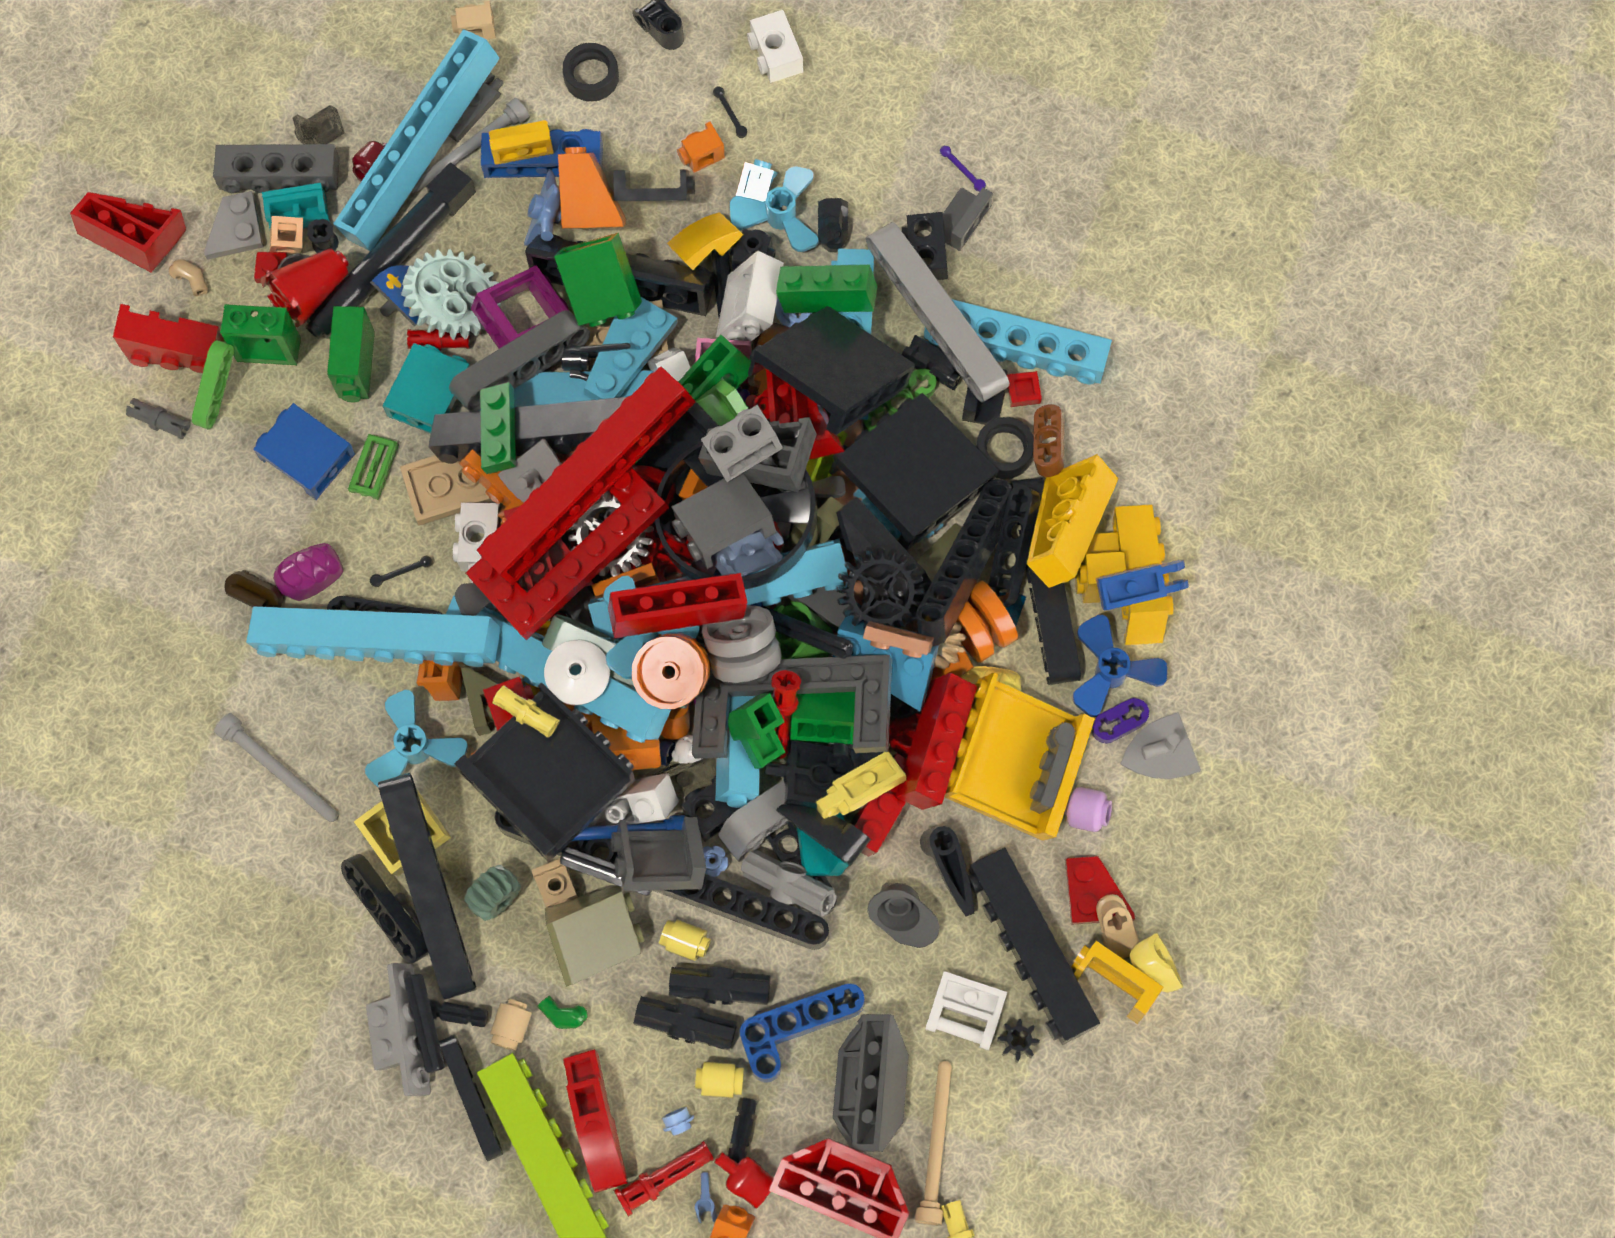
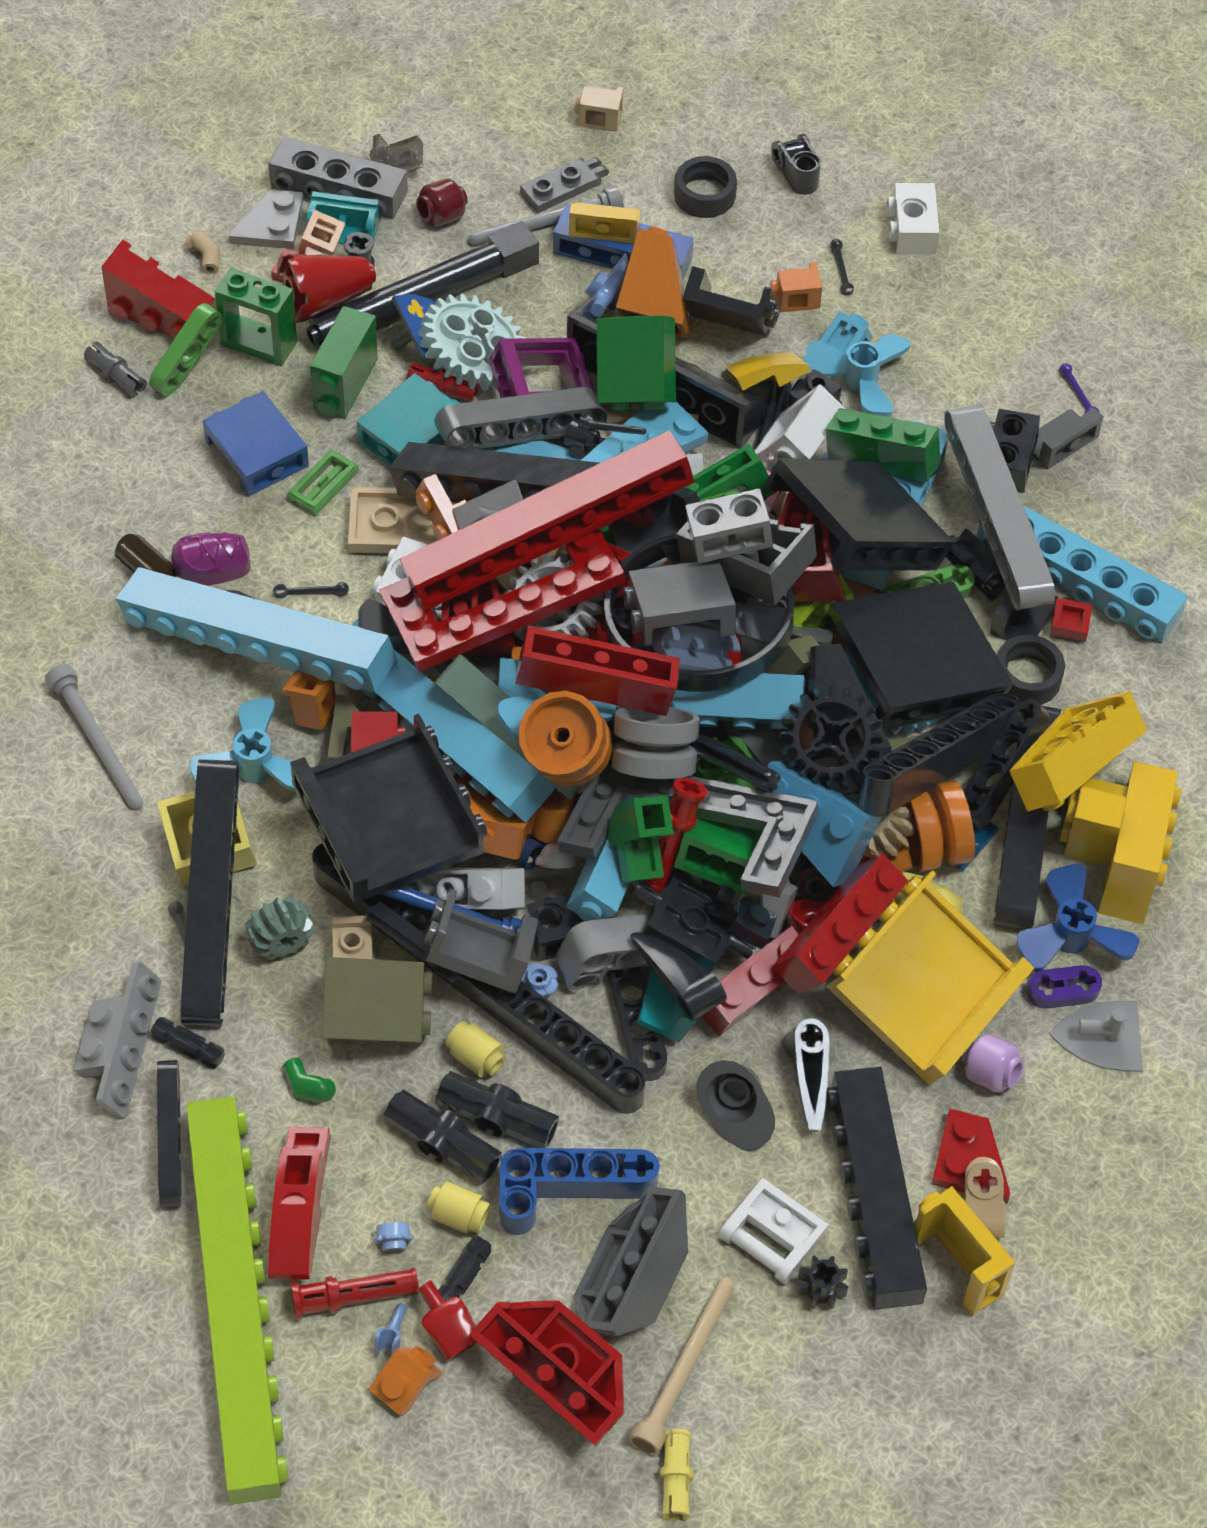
camera: 15 degrees right, 15 degrees down
(127, 229) = (160, 188): red wedge -> none
(384, 908) = (154, 909): black beam -> none
(417, 140) = (494, 189): medium azure brick -> none
(424, 1023) = (149, 1036): black axle -> none
(497, 428) = (470, 463): green plate -> none
(510, 1024) = (244, 1072): tan brick -> none
(525, 711) = (389, 739): light yellow pin -> none
(582, 687) = (461, 730): white dish -> none
(788, 882) = (617, 1023): light grey piece -> none
(832, 223) = (915, 396): black rock -> none
(861, 786) = (736, 937): light yellow hinge -> none
(886, 636) = (818, 779): nougat plate -> none
(1053, 767) = (967, 1000): dark grey hinge -> none
(1054, 448) = (1081, 674): dark orange beam -> none
(1139, 585) = (1131, 832): blue hinge -> none
(1156, 962) = (1016, 1235): light yellow piece -> none

